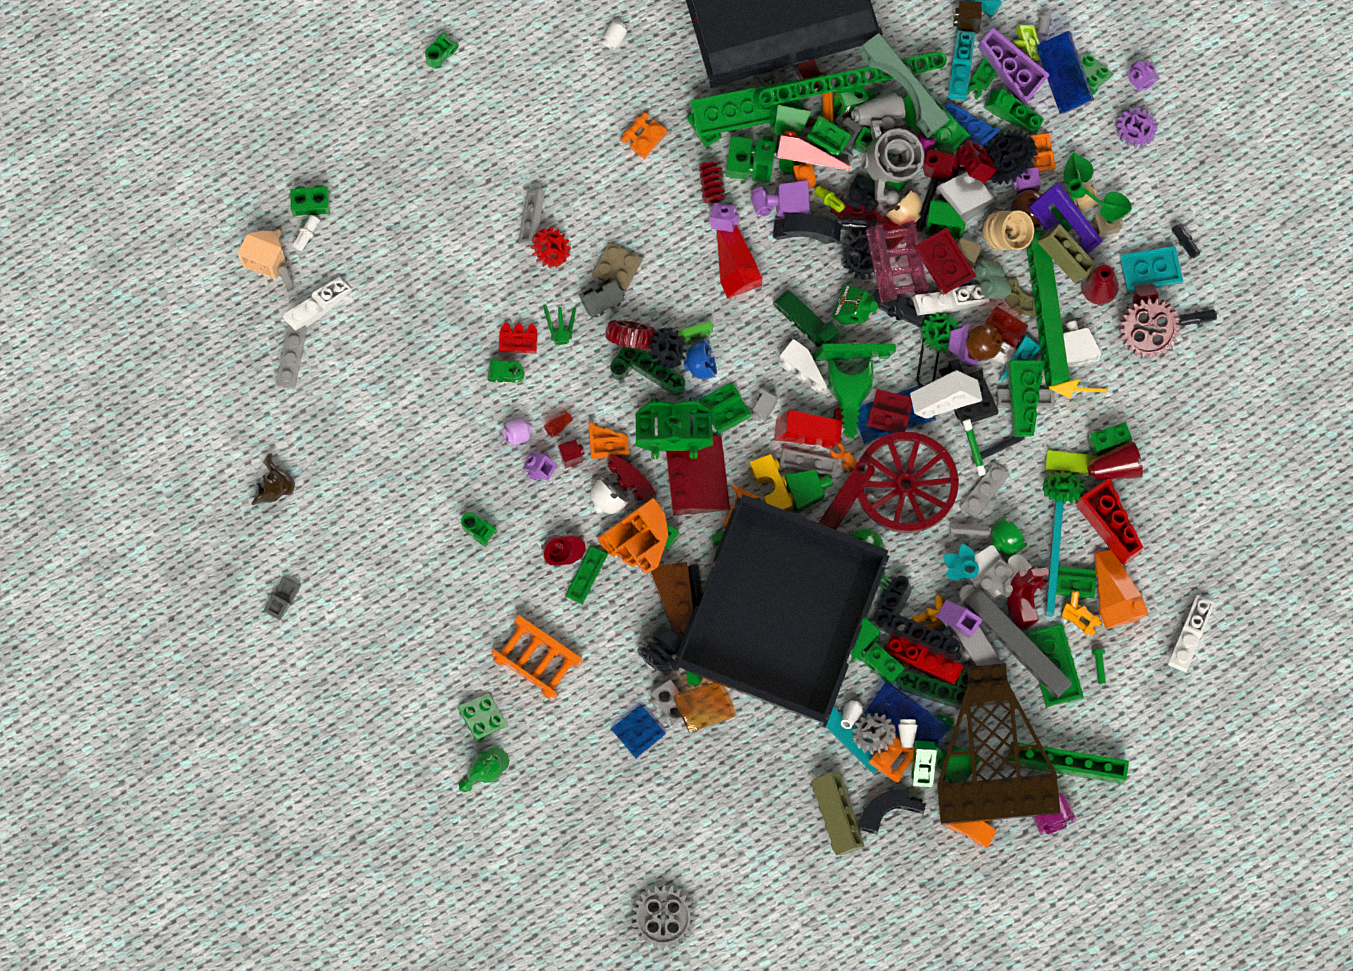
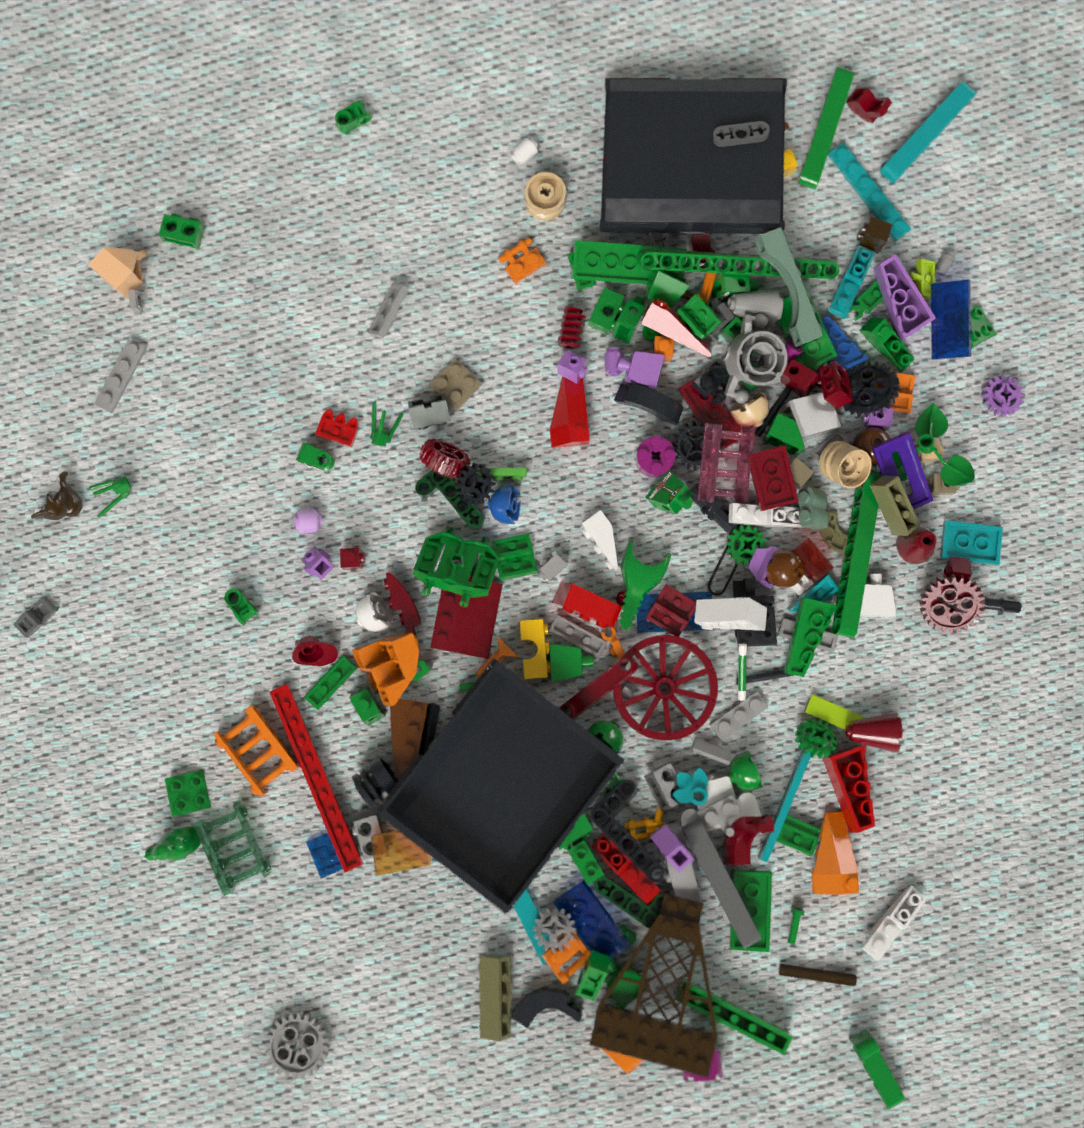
camera: 15 degrees right, 10 degrees up
(306, 233) = (168, 262): white axle -> none
(318, 304) = (155, 338): white slope -> none
(325, 452) = (120, 485): none -> green plant
(536, 772) = (220, 864): none -> clear green fence
(550, 247) = (400, 353): red gear -> none
(557, 424) = (349, 524): clear red cone -> none
(602, 664) = (316, 778): none -> red plate
(606, 442) = (390, 557): orange wing -> none
(629, 583) = (366, 705): none -> green torso
(648, 70) = (545, 196): none -> tan wheel
(806, 320) = (619, 494): dark green beam -> none
(826, 267) = (654, 446): none -> magenta brick
(829, 198) = (680, 378): lime axle -> none
(851, 713) = (539, 901): white cone -> none
(853, 351) = (653, 539): green wing -> none
(857, 224) = (701, 414): black axle -> none
(907, 732) = (587, 938): white cone -> none
(932, 573) = (662, 788): none -> dark grey brick
(1067, 388) = (852, 640): yellow piece -> none
(1073, 613) = (787, 866): light orange piece -> none
(1109, 438) = (876, 703): green brick -> none
(1136, 705) = (817, 975): none -> dark brown axle
(1142, 75) = (1026, 344): medium lavender brick -> none
(1185, 241) = (1014, 524): black axle -> none
(1219, 771) = (877, 1069): none -> green beam

